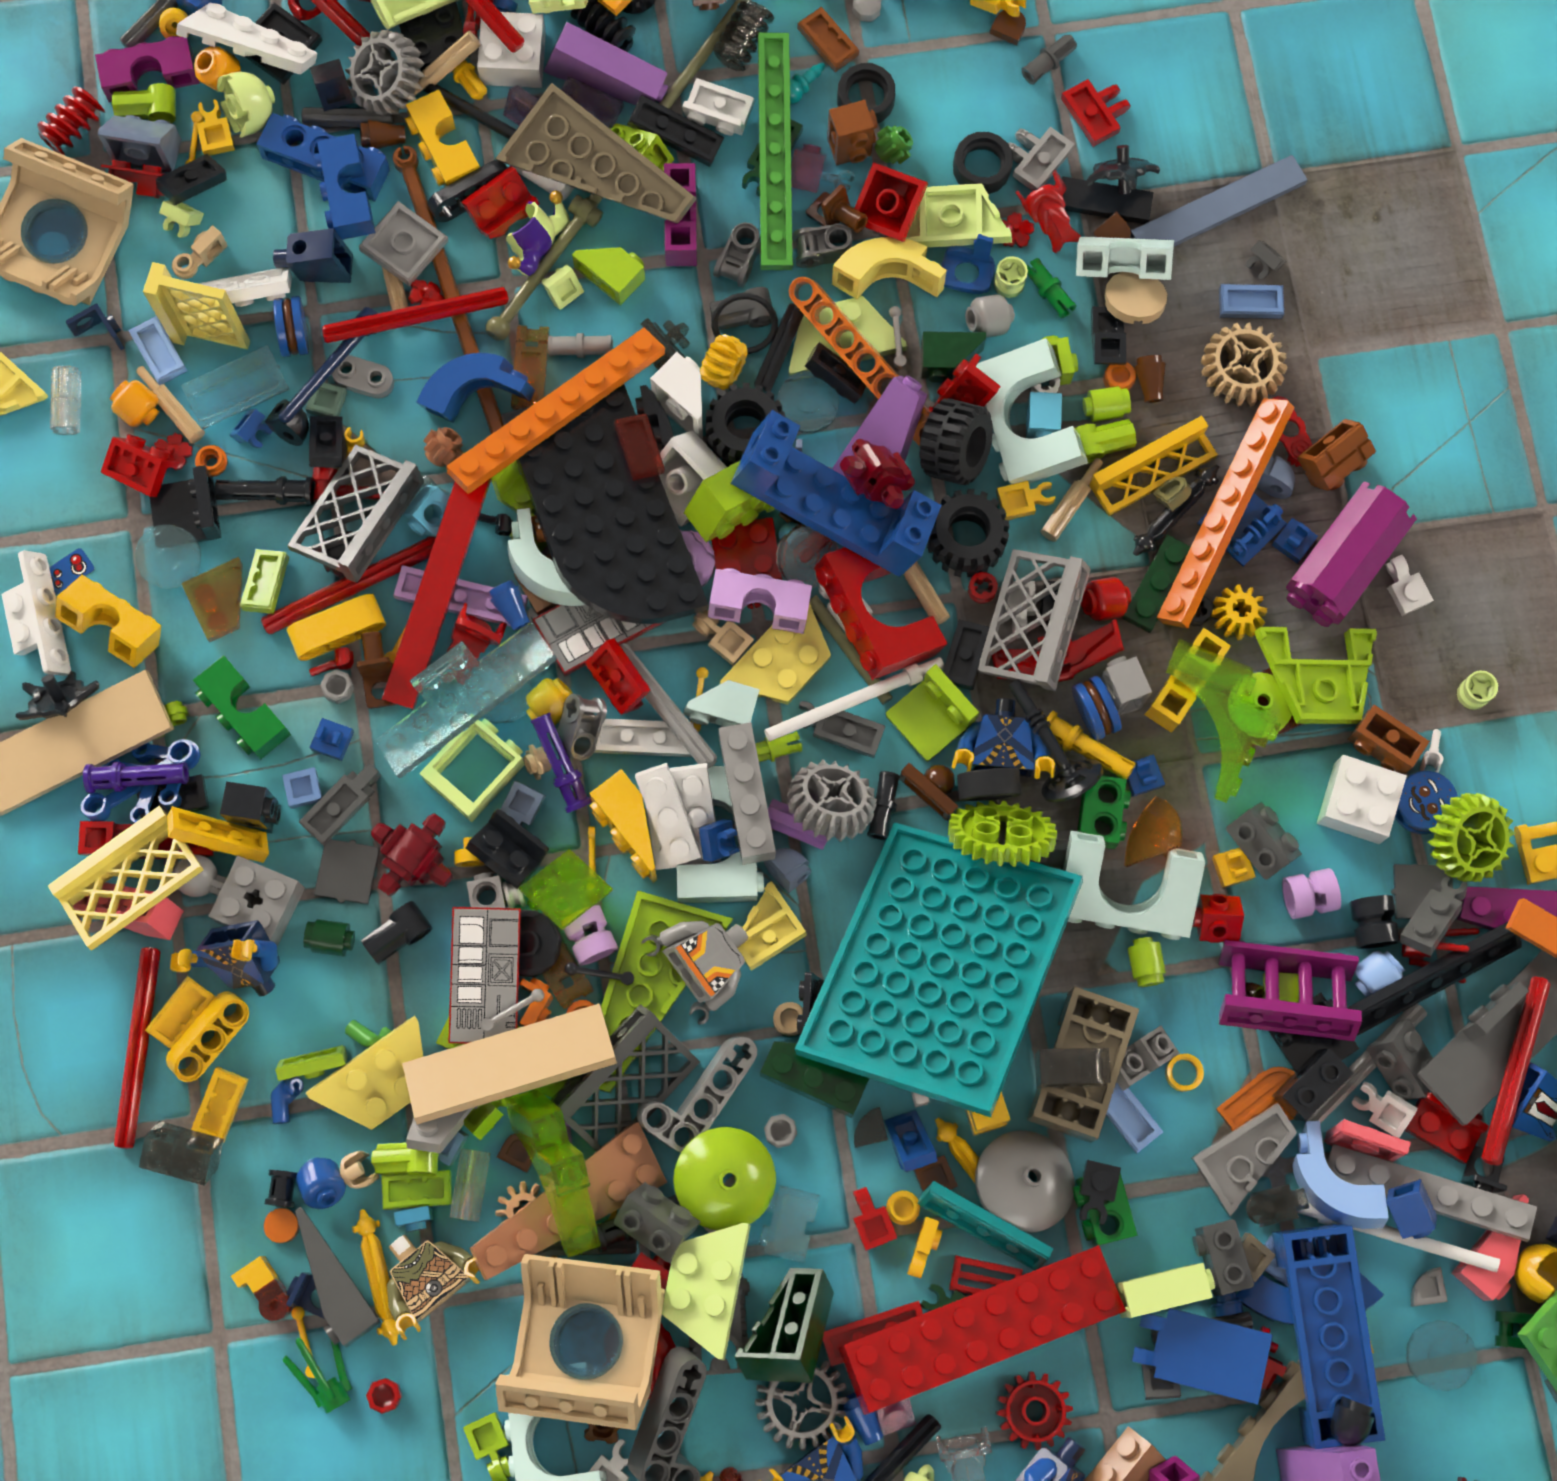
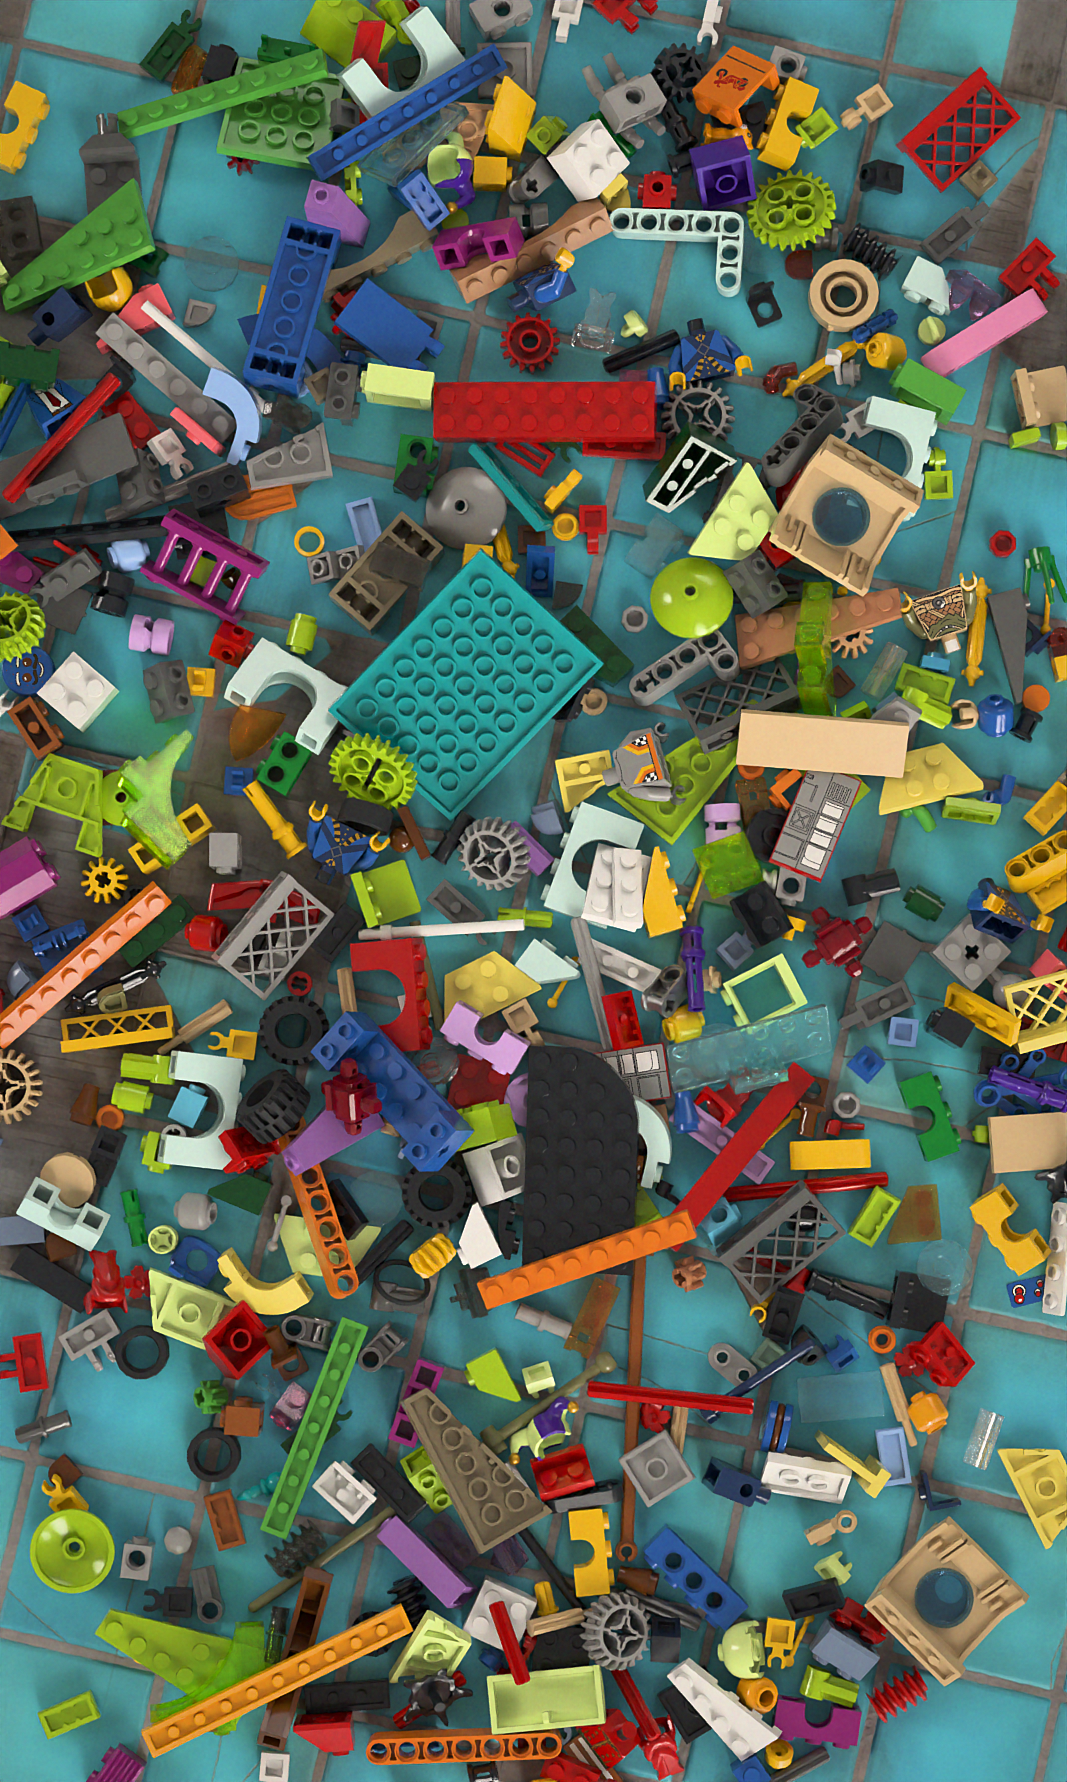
camera: 155 degrees left, 10 degrees up
(340, 162) = (687, 1556): blue arch -> none
(466, 374) = (659, 1325): blue arch -> none
(488, 1023) = (827, 783): light grey hinge -> none
(626, 978) = (707, 779): black hinge -> none
(639, 446) = (532, 1202): clear red tile -> none
(718, 840) = (595, 855): blue tile -> none
(746, 793) = (559, 880): light grey brick -> none
(1070, 777) = (301, 807): black dish -> none
(1096, 707) = (254, 845): blue head -> none
(1123, 169) = (30, 1293): black piece -> none
(1351, 1422) = (306, 237): black piece -> none
(1412, 1210) = (189, 368): blue brick -> none

